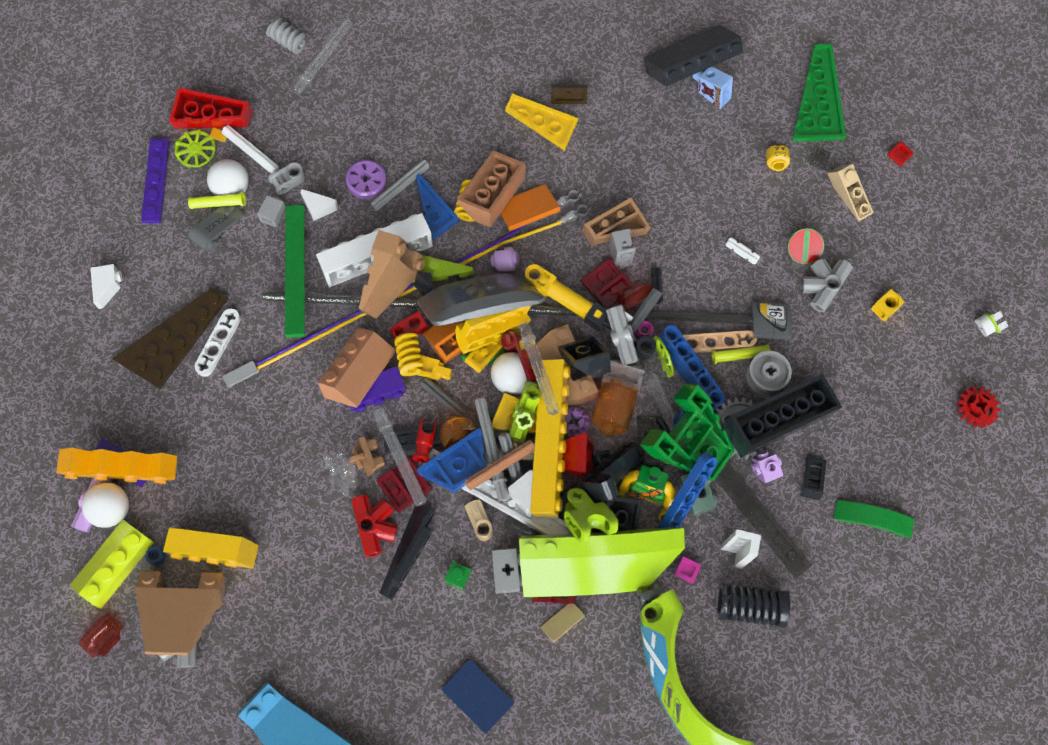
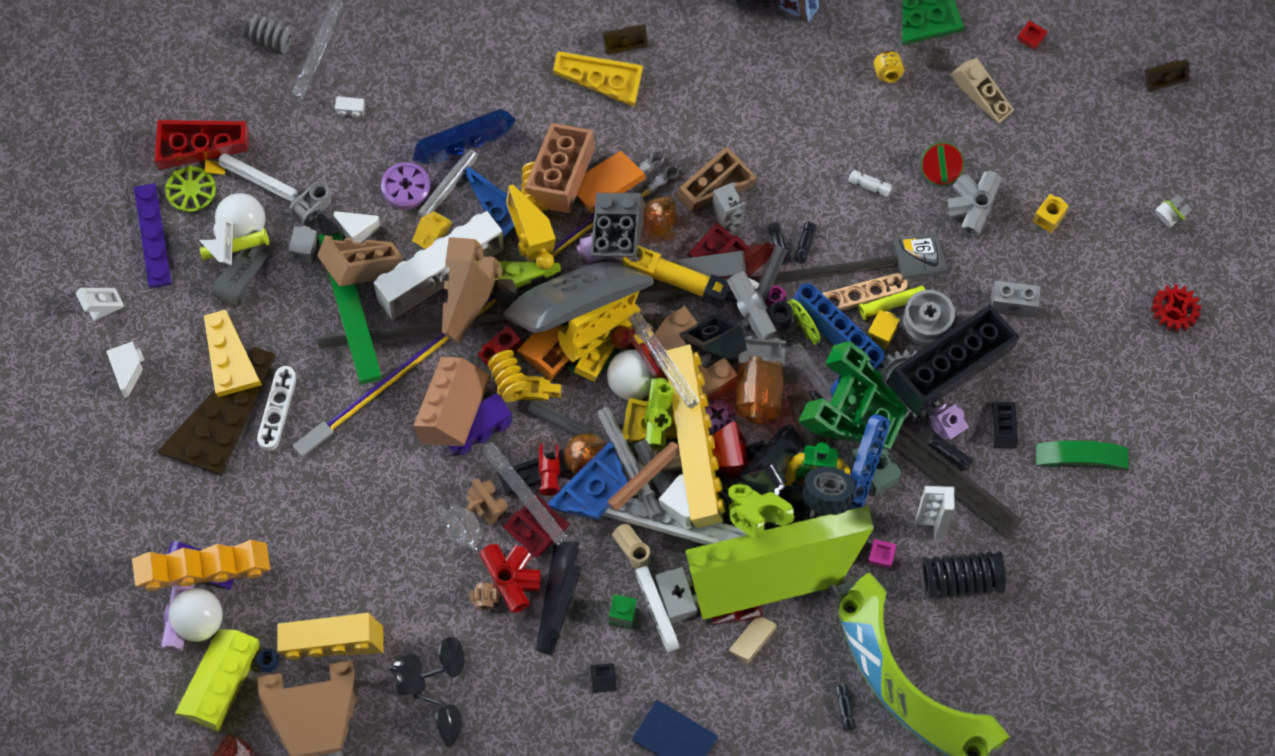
camera: 10 degrees left, 5 degrees down
(97, 225) = (99, 301): none -> white slope
(188, 296) = (228, 357): none -> yellow wing
(204, 199) = (222, 246): none -> white slope
(263, 601) = (411, 682): none -> black plant
(294, 199) = (325, 224): none -> black slope
(309, 234) = (358, 262): none -> medium nougat wedge
(337, 107) = (349, 106): none -> white piece
(346, 538) = (484, 596): none -> medium nougat gear
(376, 218) = (430, 229): none -> yellow head
(419, 148) = (463, 136): none -> clear blue brick
(429, 629) = (603, 678): none -> black slope
(457, 236) = (532, 229): none -> yellow slope
(487, 579) = (657, 609): none -> white beam
(526, 245) = (617, 224): none -> dark grey slope
(562, 244) = (658, 216): none -> clear orange cylinder
(601, 294) = (719, 264): none -> dark grey tile
(627, 700) = (845, 708): none -> black axle
(653, 510) = (828, 490): none -> black wheel
(679, 289) = (805, 242): none -> black axle
(728, 375) = (883, 328): none -> yellow brick
(763, 493) = (950, 452): none -> black pin
(844, 372) = (1015, 298): none -> light grey brick
(1006, 208) = (1167, 75): none -> dark brown hinge

